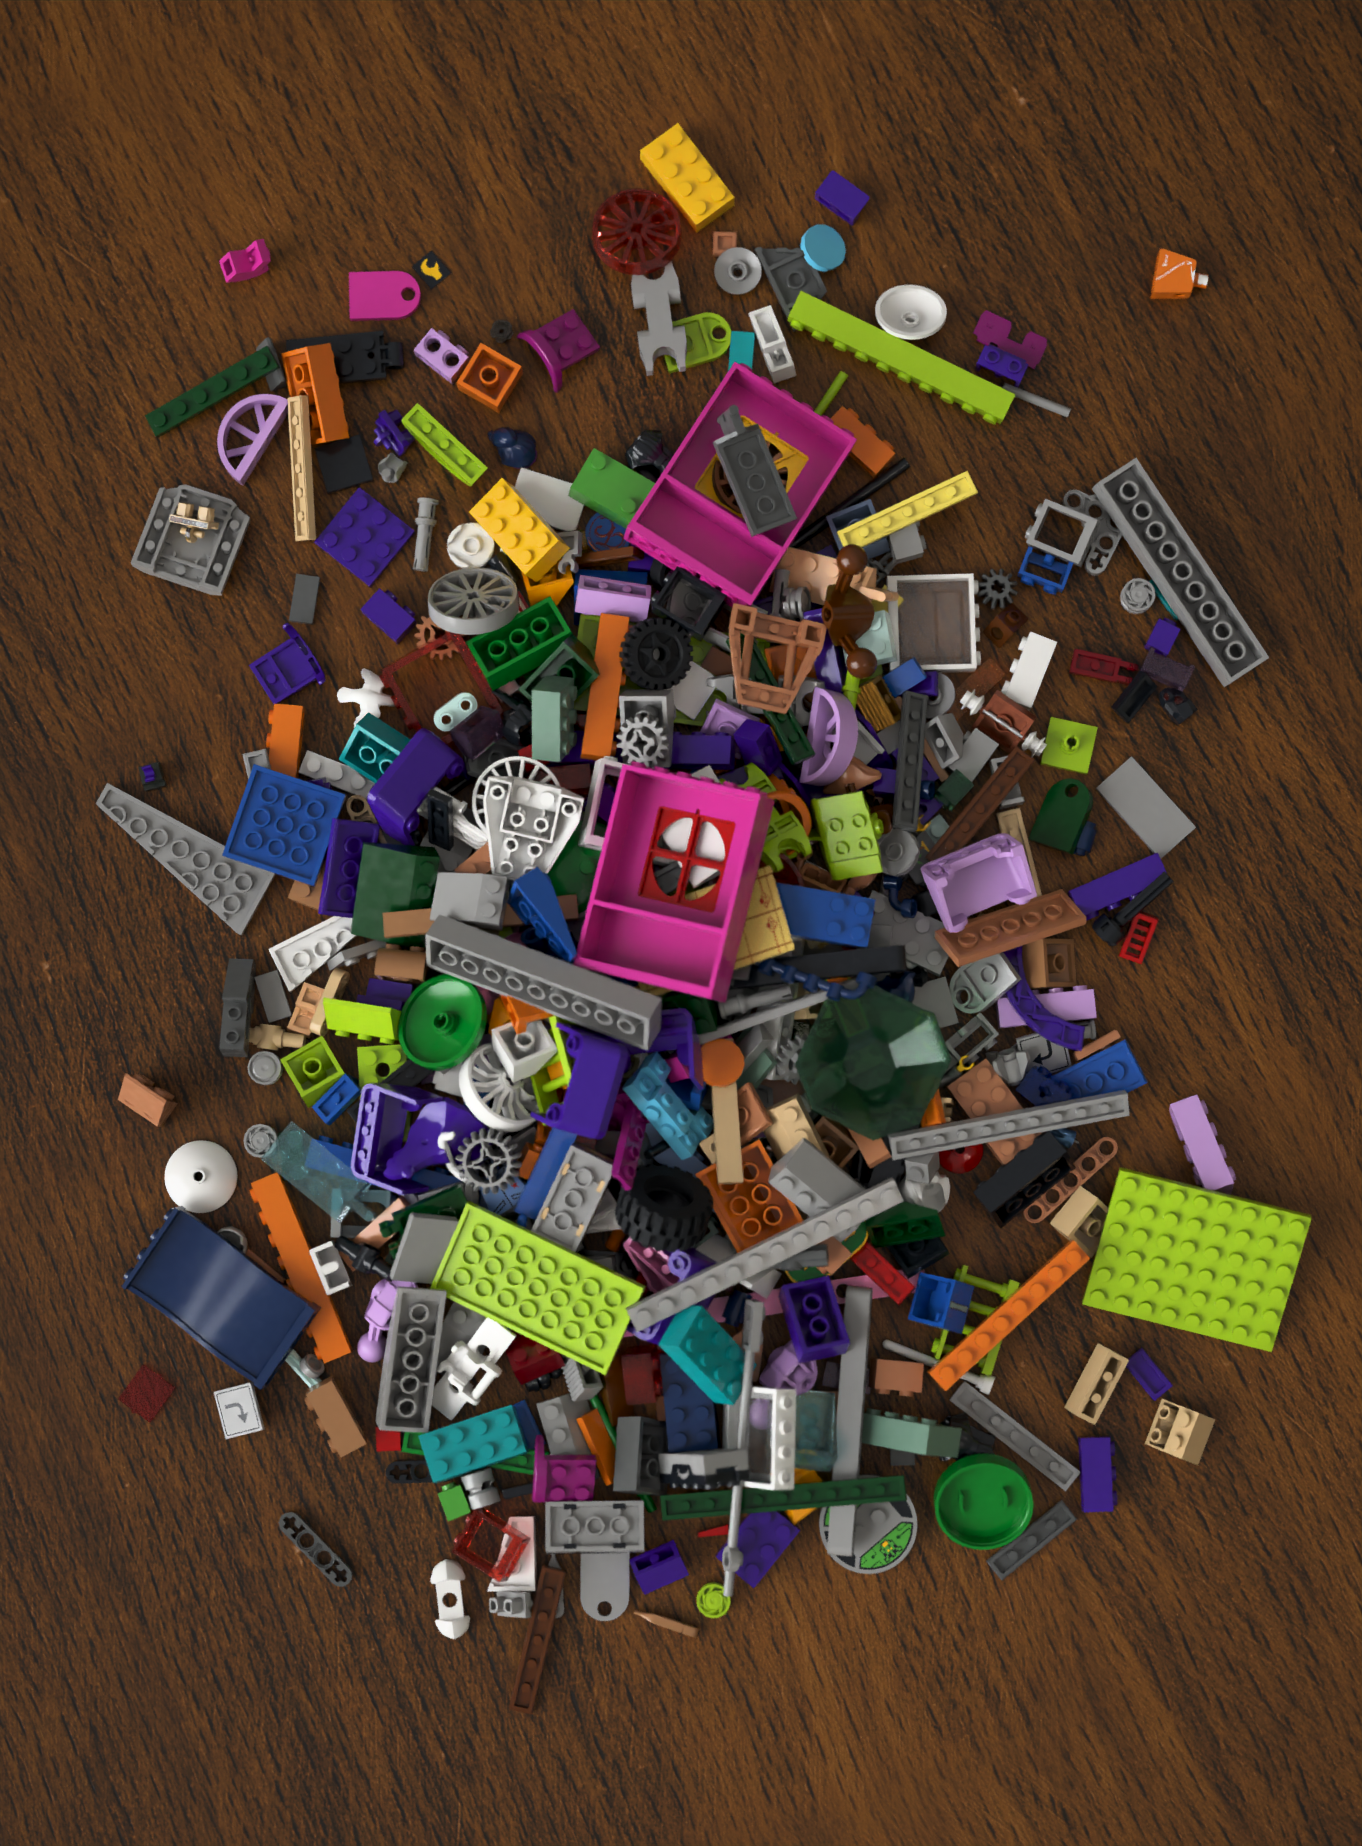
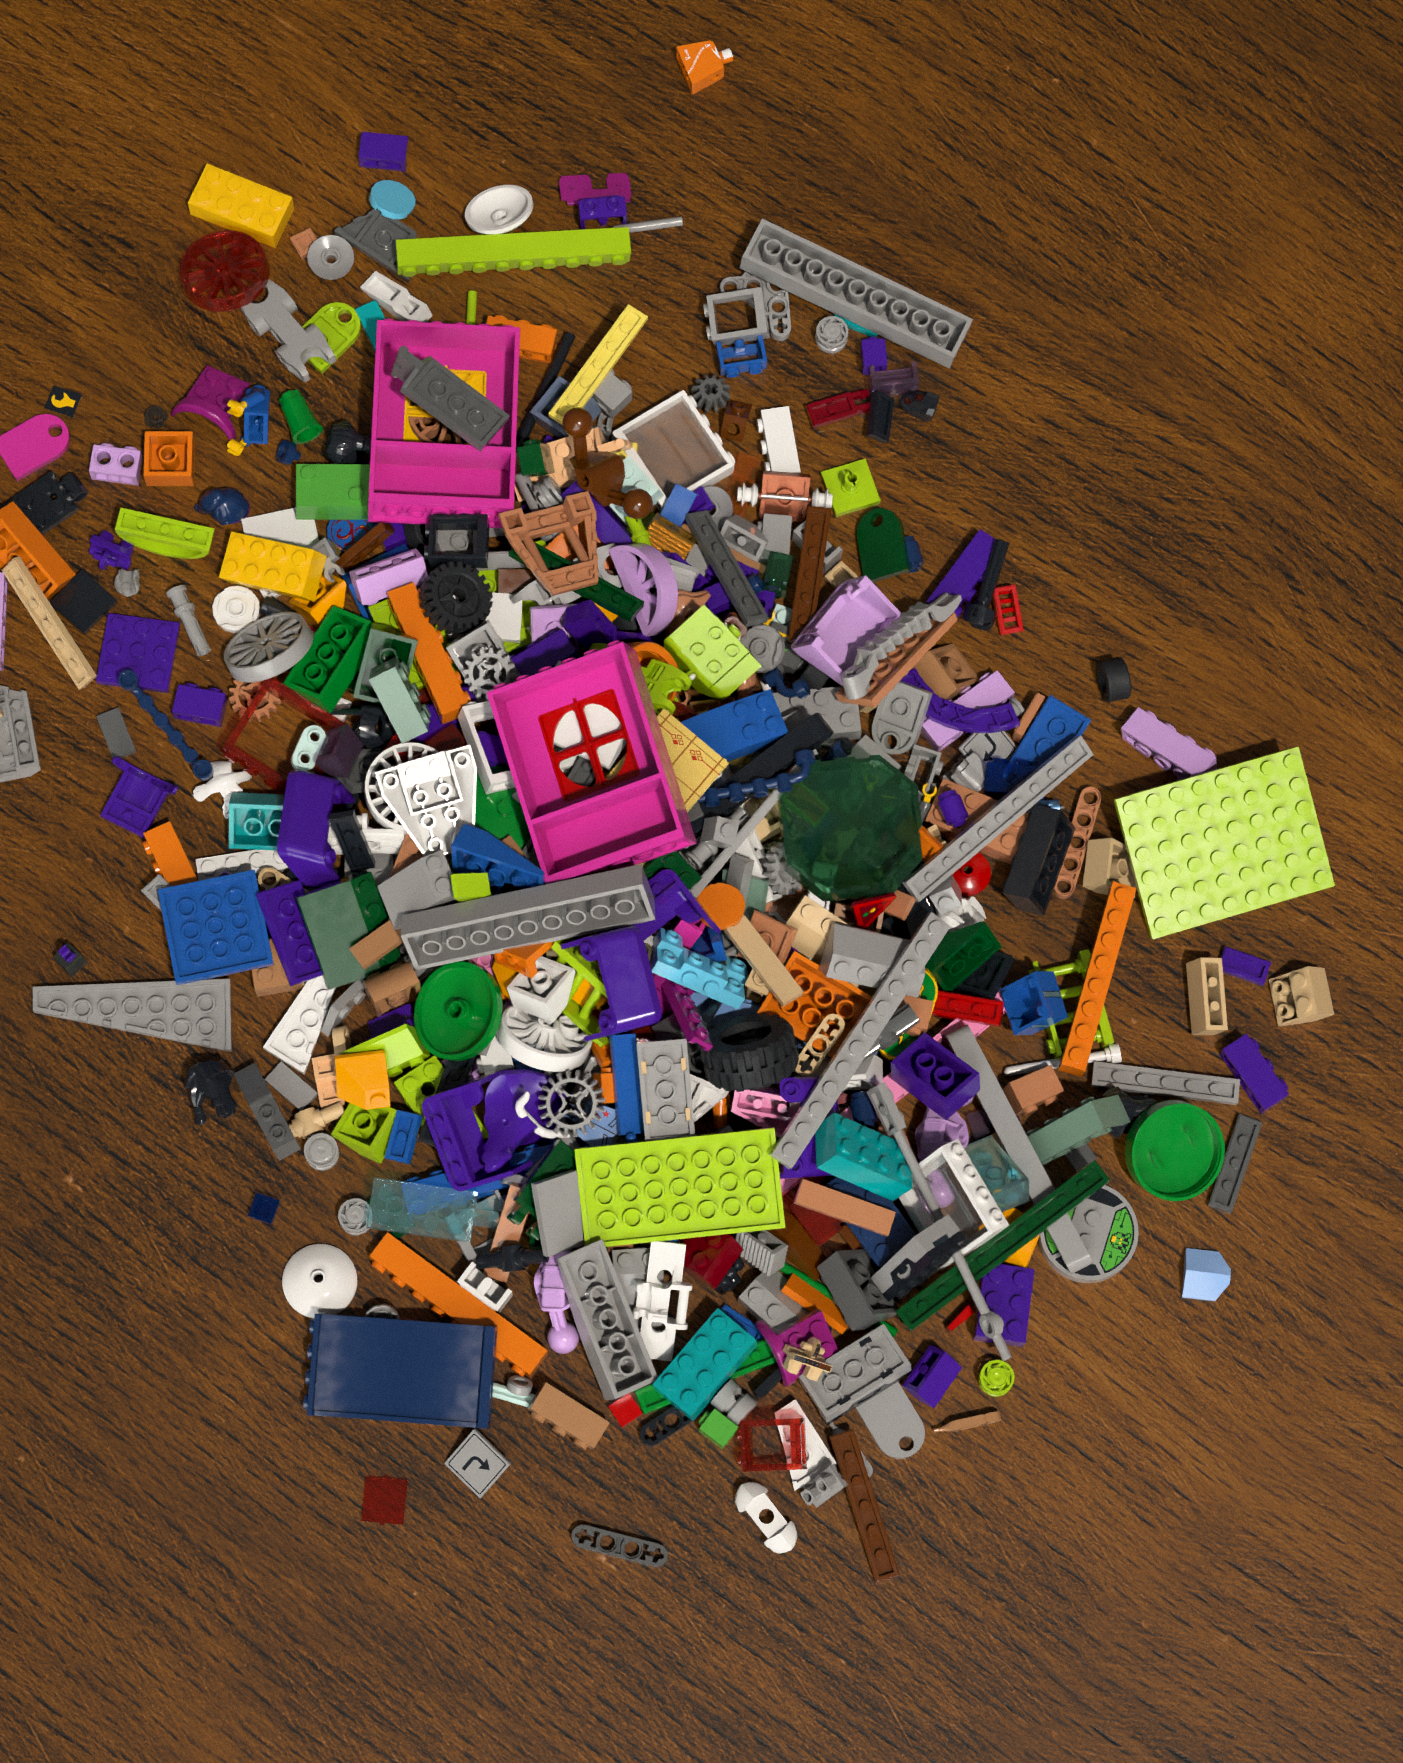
camera: 40 degrees left, 10 degrees down
(148, 1101) = (231, 1236): nougat slope -> none
(189, 1088) = (264, 1209): none -> clear blue plate
(206, 958) = (213, 1082): none -> black piece
(331, 1031) = (363, 1079): none -> light orange slope
(354, 677) = (201, 768): none -> dark blue bar
(509, 926) = (470, 886): none -> lime slope
(559, 1492) = (809, 1356): none -> tan hips
(585, 383) = (256, 418): none -> blue torso
(595, 430) = (287, 452): none -> dark blue tile
(624, 403) = (300, 419): none -> green plant
(667, 1386) = (844, 1207): none -> nougat tile
(749, 1232) = (824, 1027): none -> tan beam
(754, 1000) = (719, 832): none -> light grey brick
(800, 567) = (535, 459): none -> dark green brick
(842, 1141) = (867, 910): none -> piece
(945, 1618) = (1204, 1274): none -> light blue slope
(959, 931) = (915, 620): none -> light grey piece
(974, 1093) = (952, 808): none -> dark purple brick
(1145, 807) = (946, 501): light grey tile -> none
(1191, 1056) = (1113, 679): none -> black tyre

